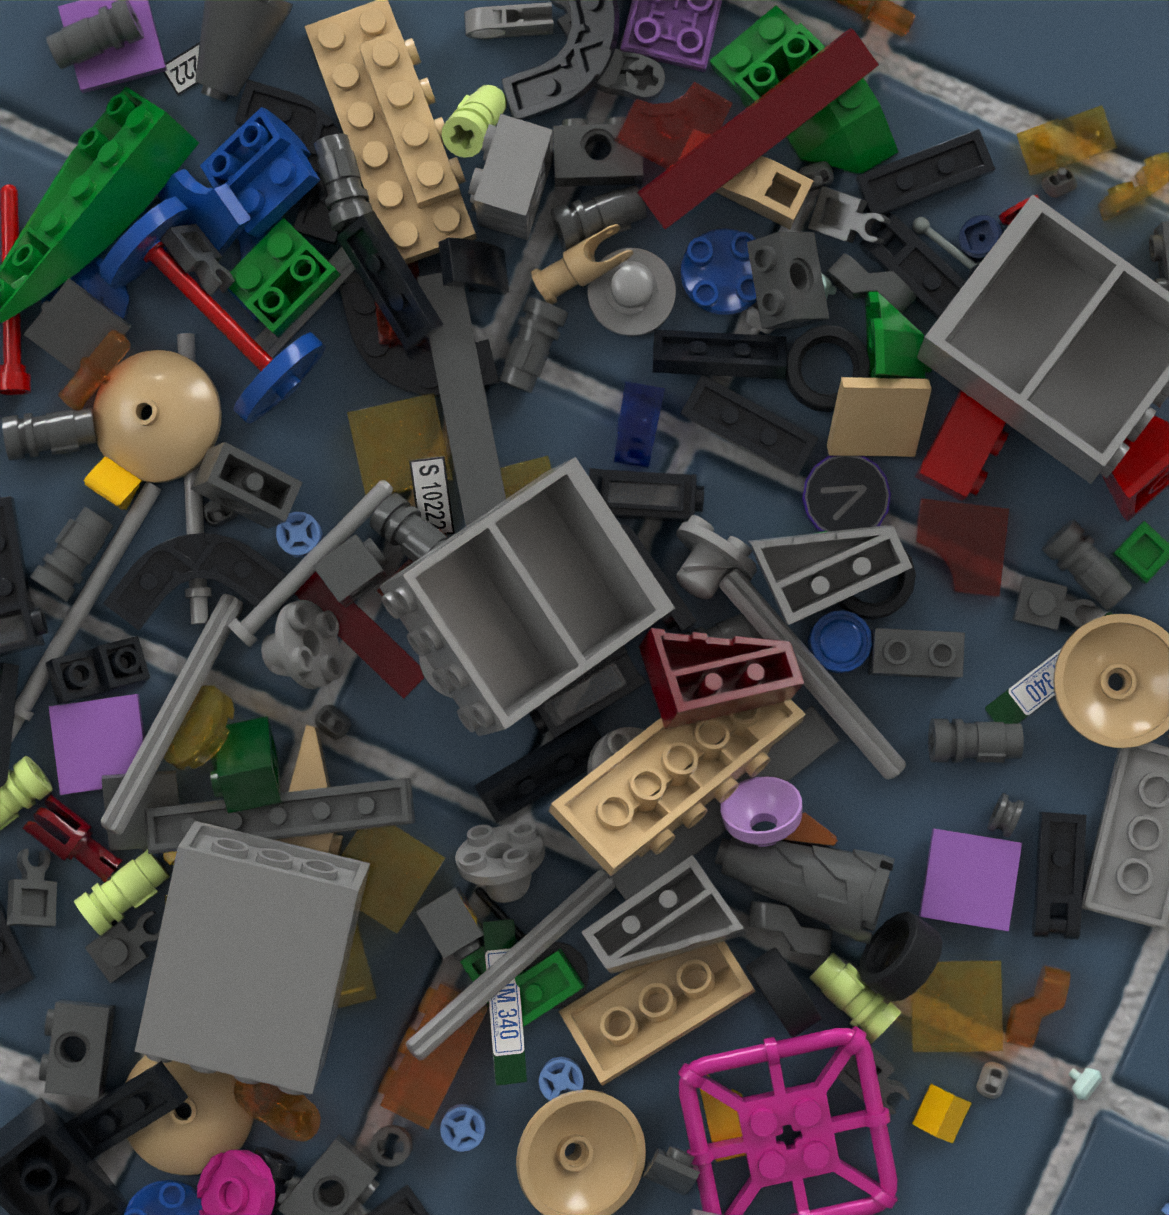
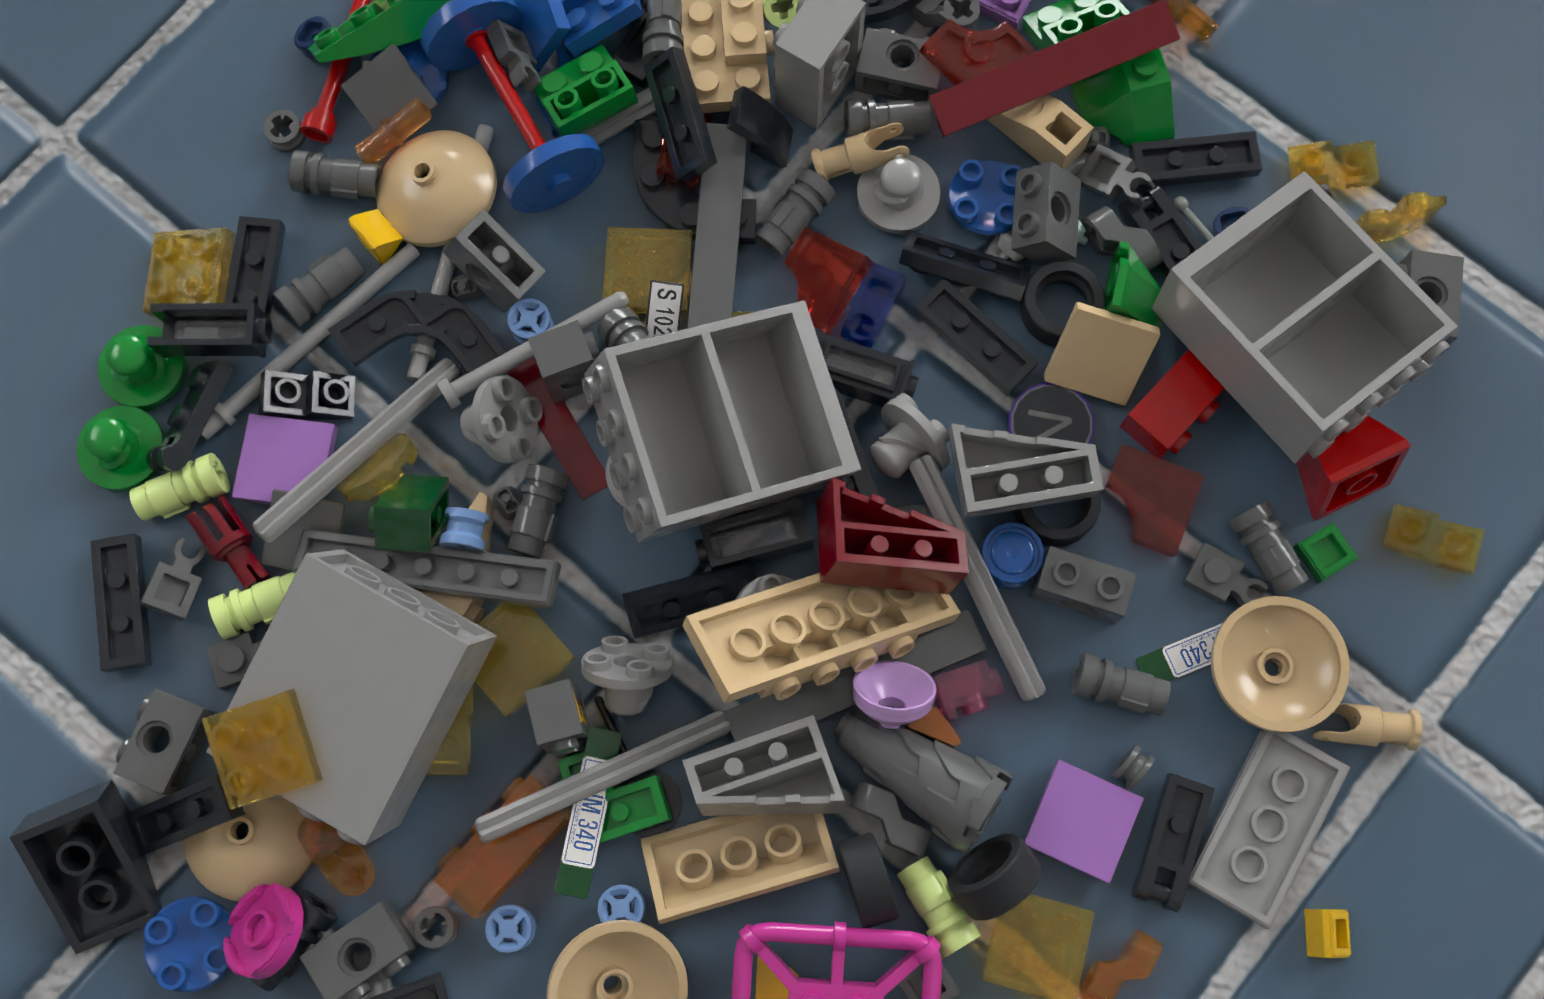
camera: 20 degrees right, 10 degrees down
(190, 1035) = (262, 749): none -> clear yellow tile
(307, 770) = (464, 529): none -> medium blue wheel
(365, 734) = (535, 515): none -> dark grey axle
(584, 408) = (825, 276): none -> clear red tile
(830, 786) = (967, 689): none -> clear pink brick

